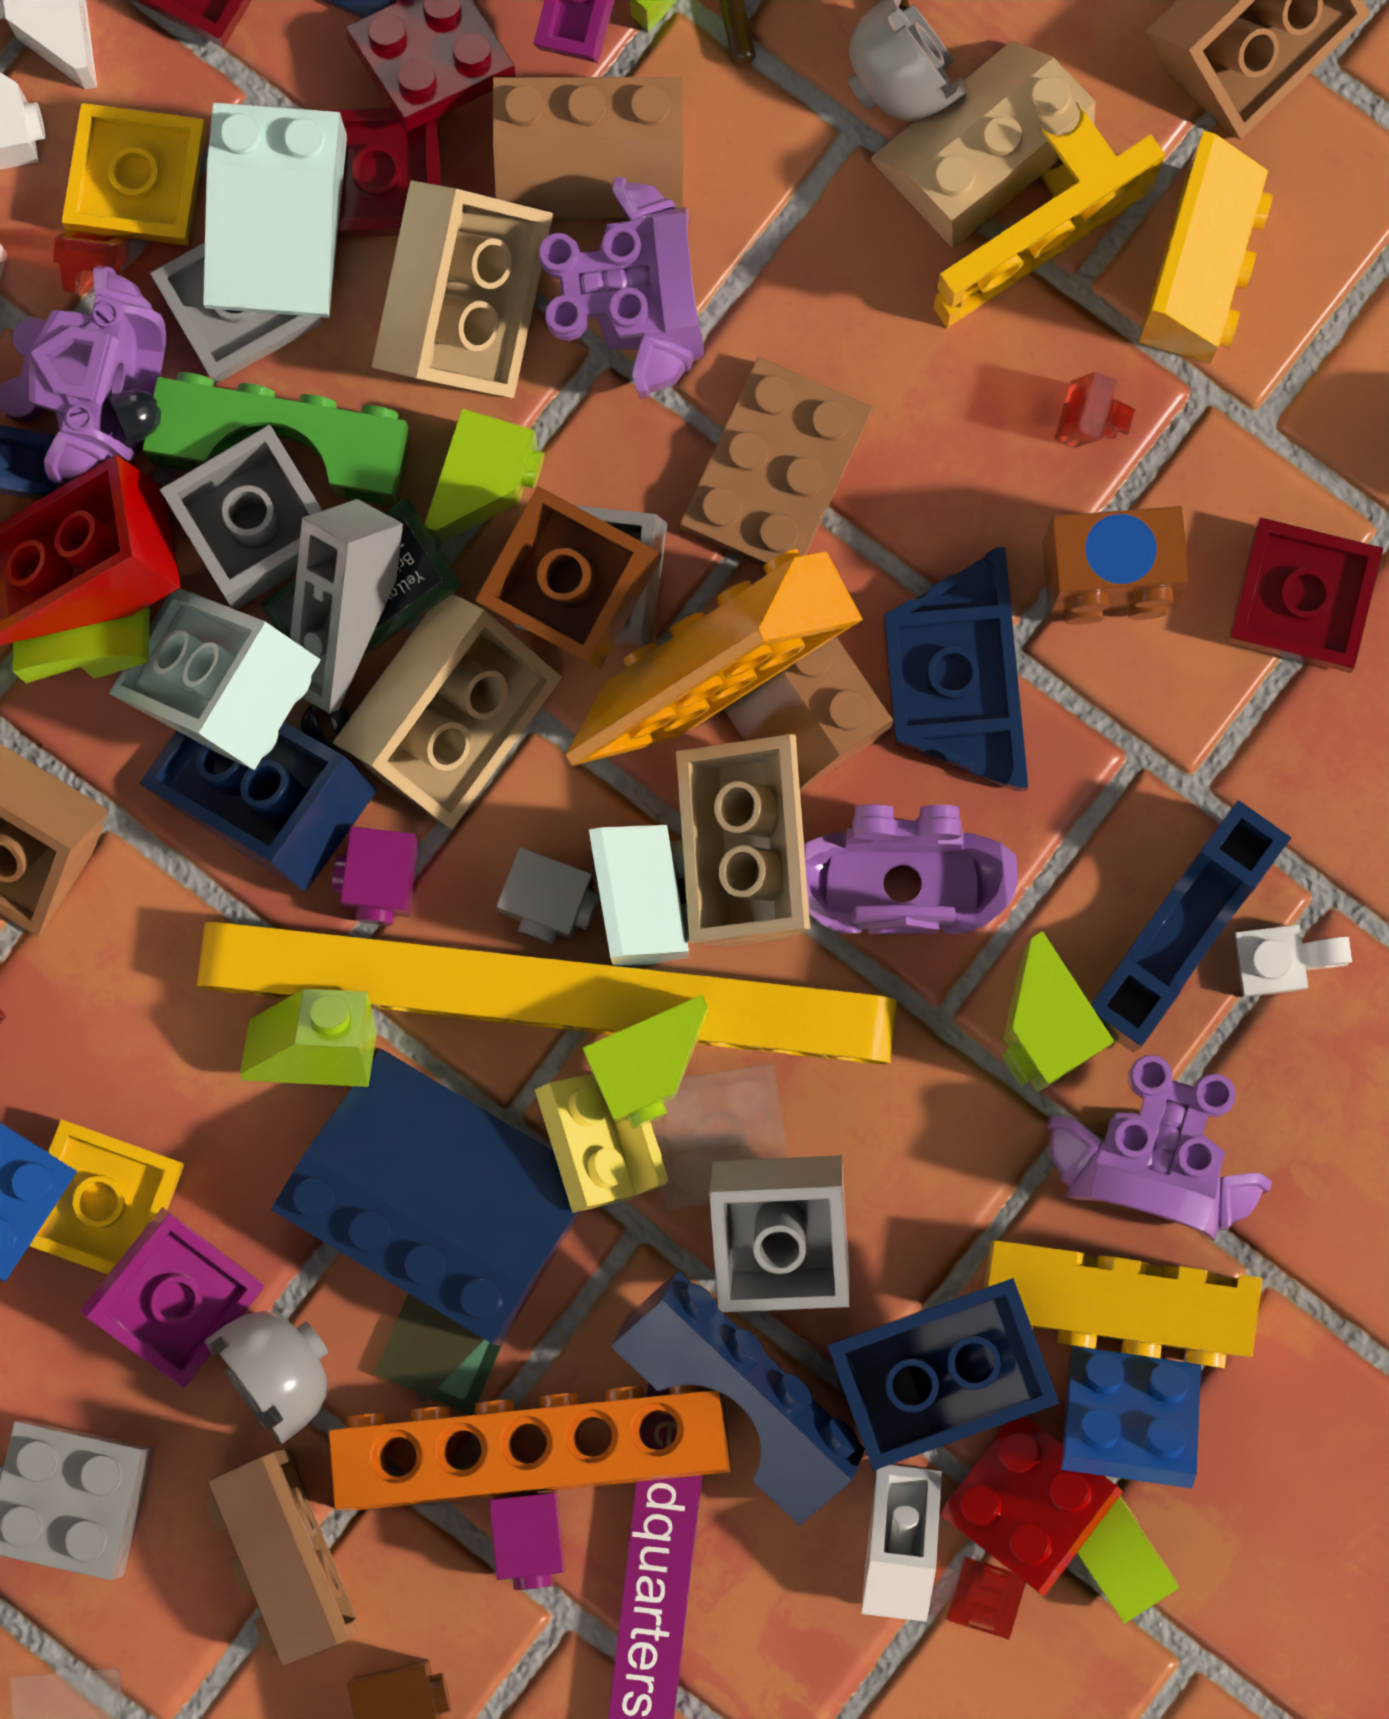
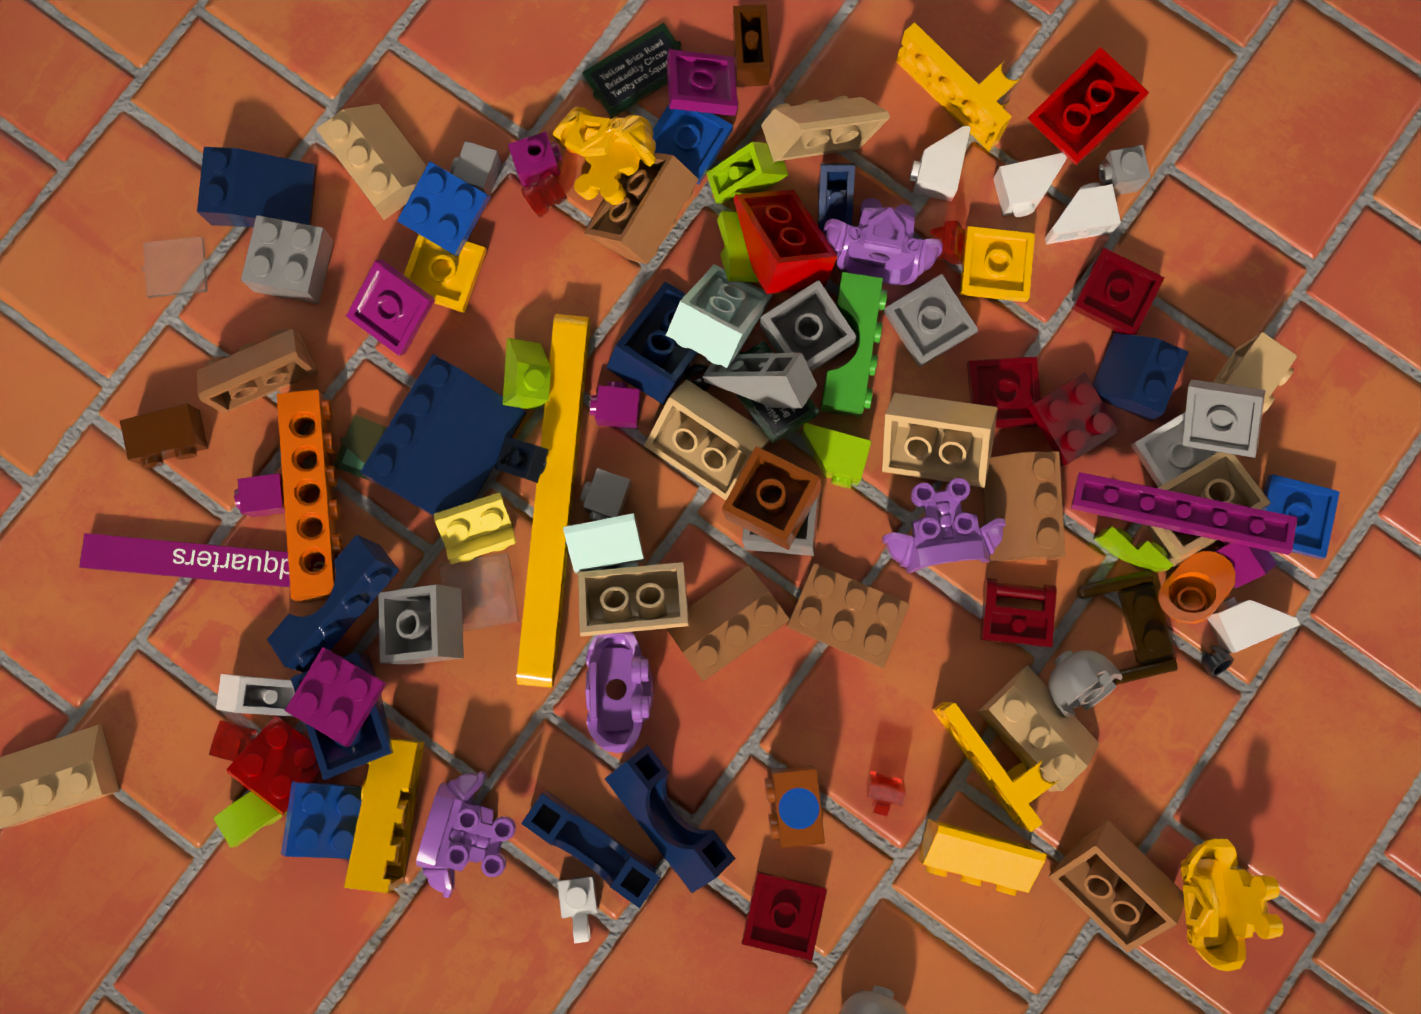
camera: 85 degrees right, 0 degrees up
(136, 414) = (860, 265): black hinge -> none
(272, 209) = (979, 335): light aqua slope -> none
(274, 1369) = (351, 359): light grey cylinder -> none
(475, 1047) = (522, 459): none -> black plate
(647, 1062) = (509, 549): lime slope -> none
(718, 656) = (733, 581): light orange slope -> none
(799, 169) = (1018, 624): none -> dark red plate
(910, 1380) = (335, 697): none -> magenta plate
(959, 675) = (734, 718): dark blue wing -> none
(1049, 1020) = (534, 771): lime slope -> none
(1195, 750) = (693, 853): none -> dark blue arch

